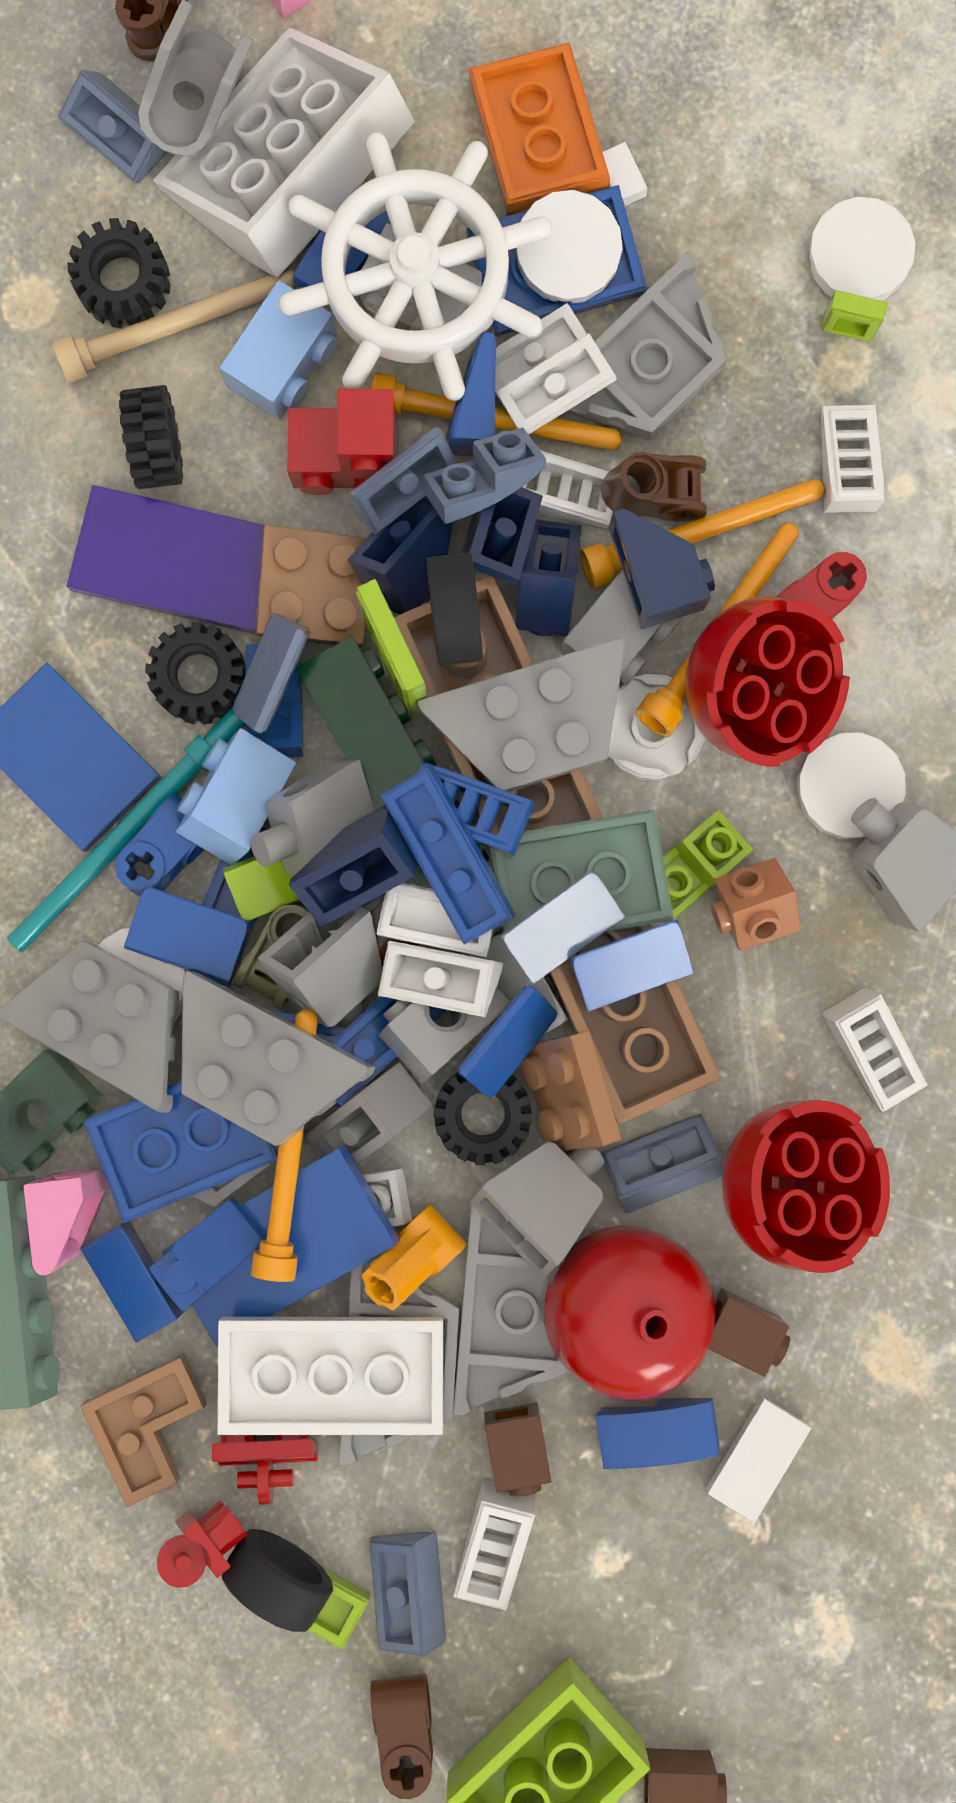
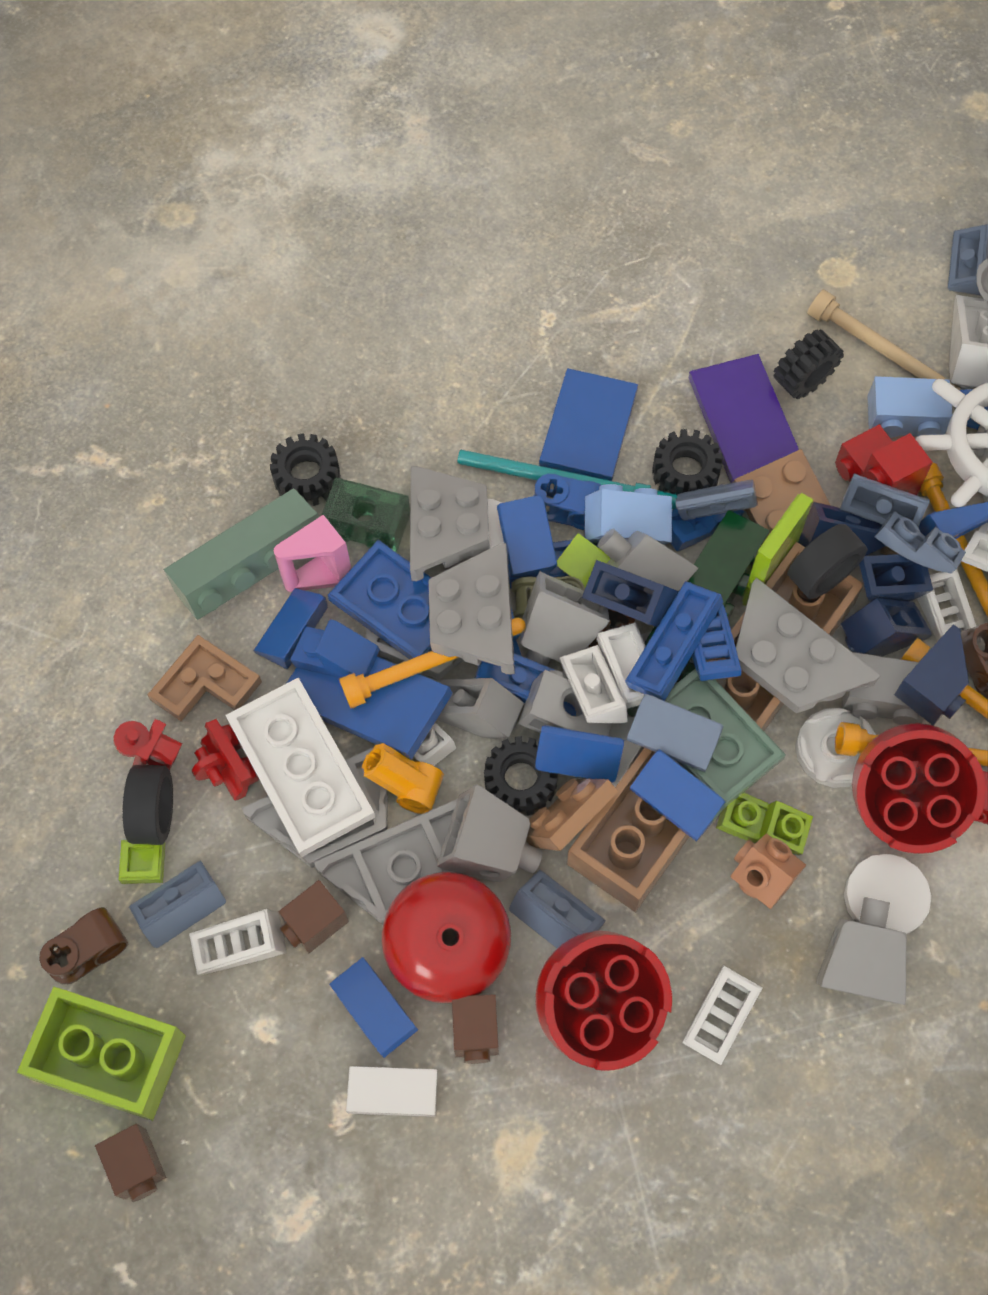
camera: 60 degrees right, 20 degrees down
(102, 249) = (895, 288): black tyre -> none

